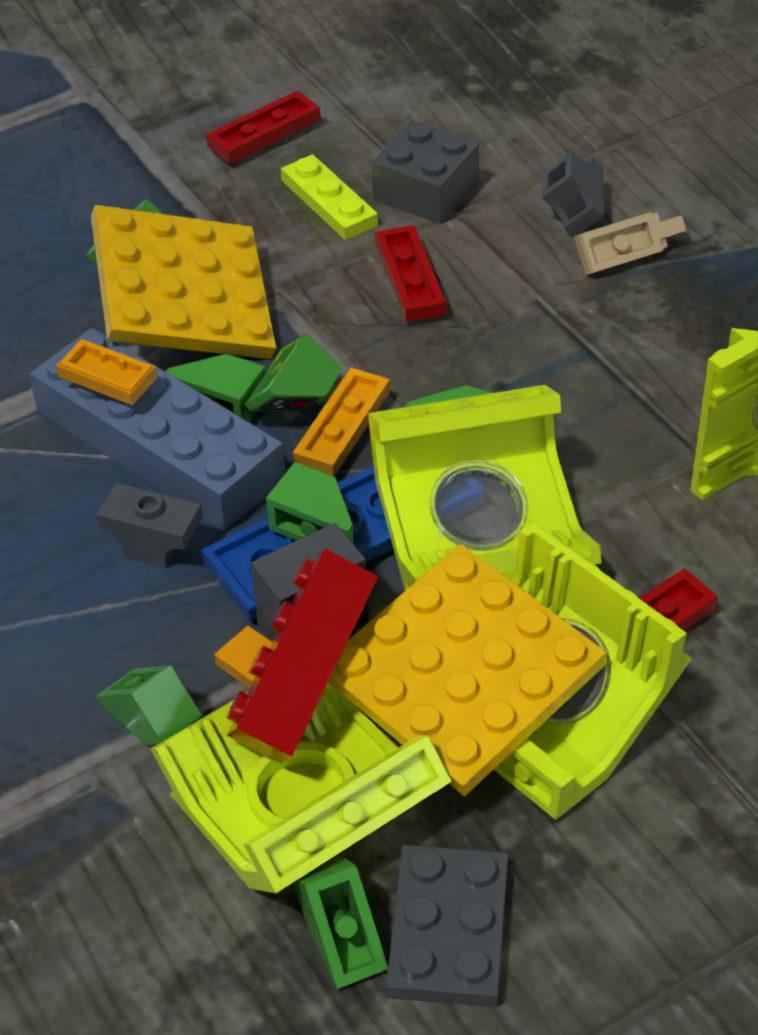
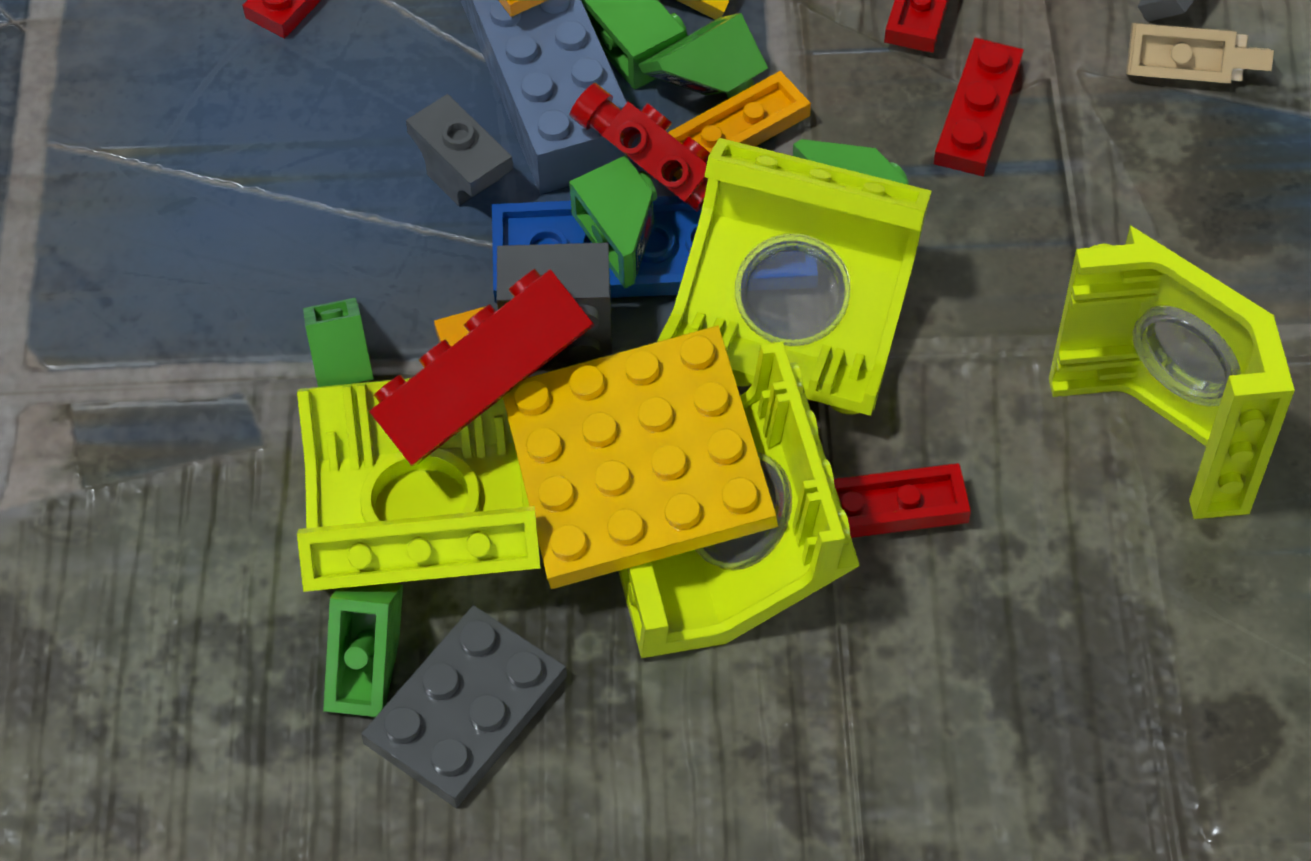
camera: 30 degrees right, 10 degrees up
(317, 447) = (657, 151): none -> red brick
(505, 336) = (978, 107): none -> red plate

